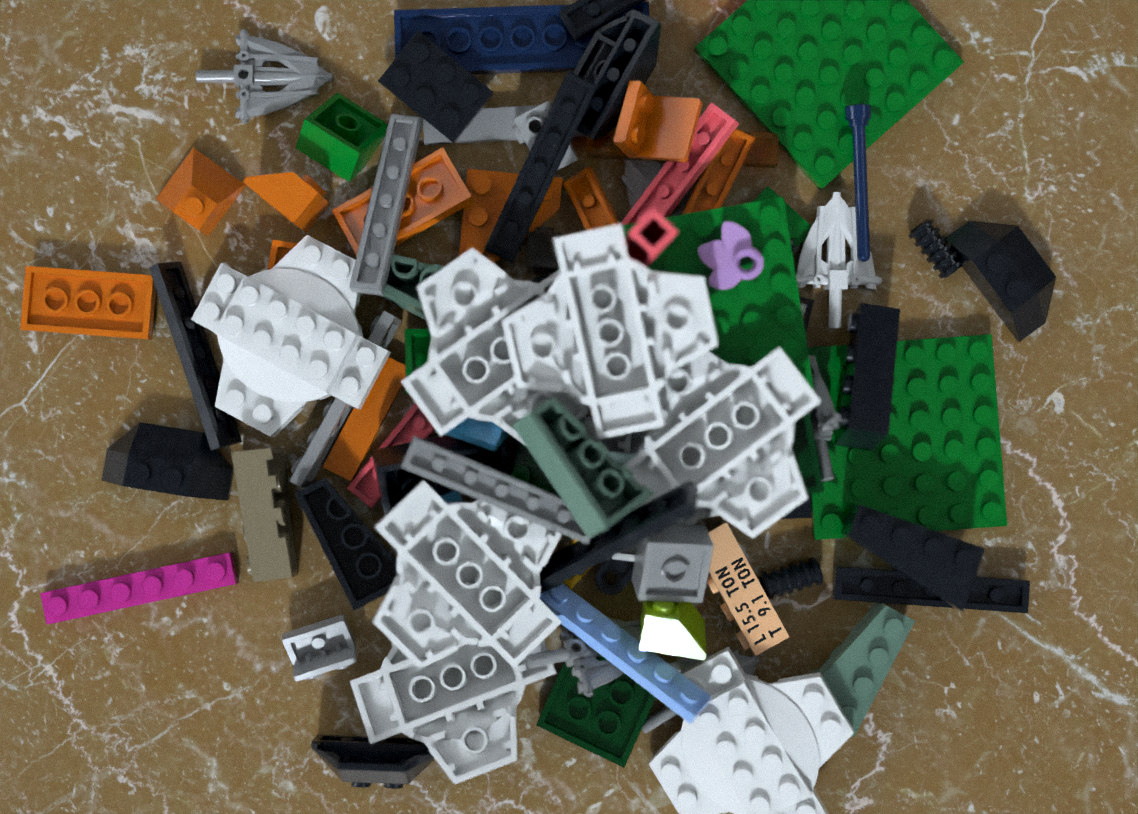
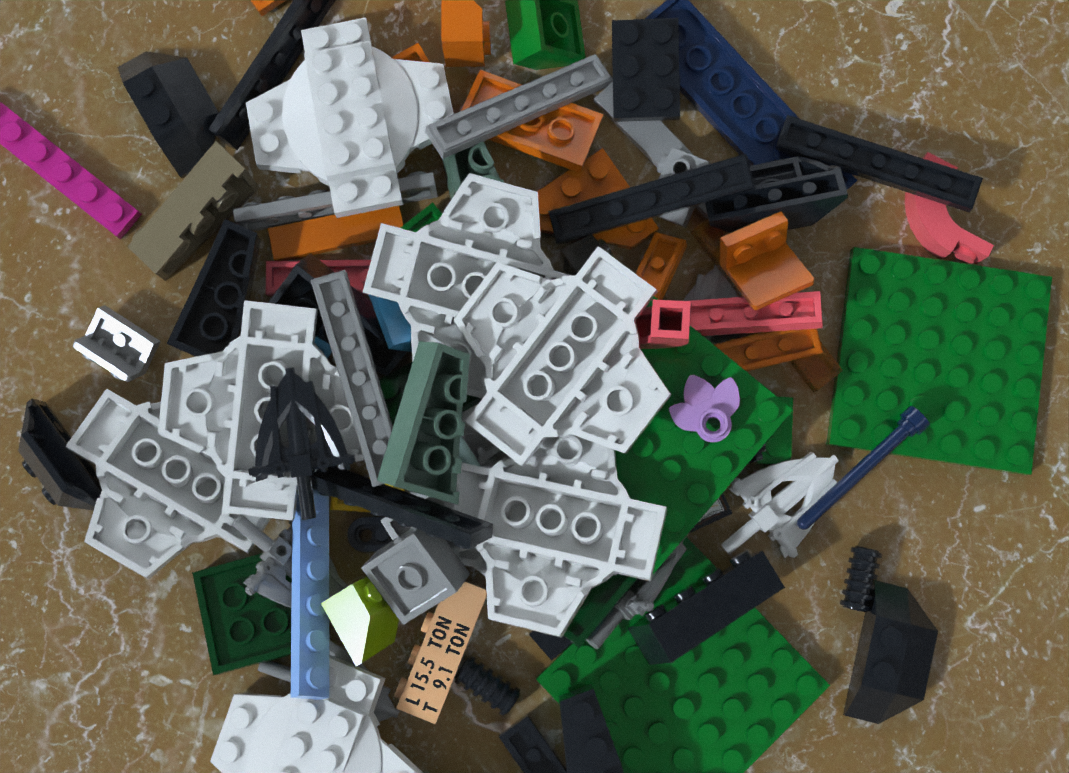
camera: 45 degrees right, 5 degrees down
(479, 550) = (293, 402): none -> black bar

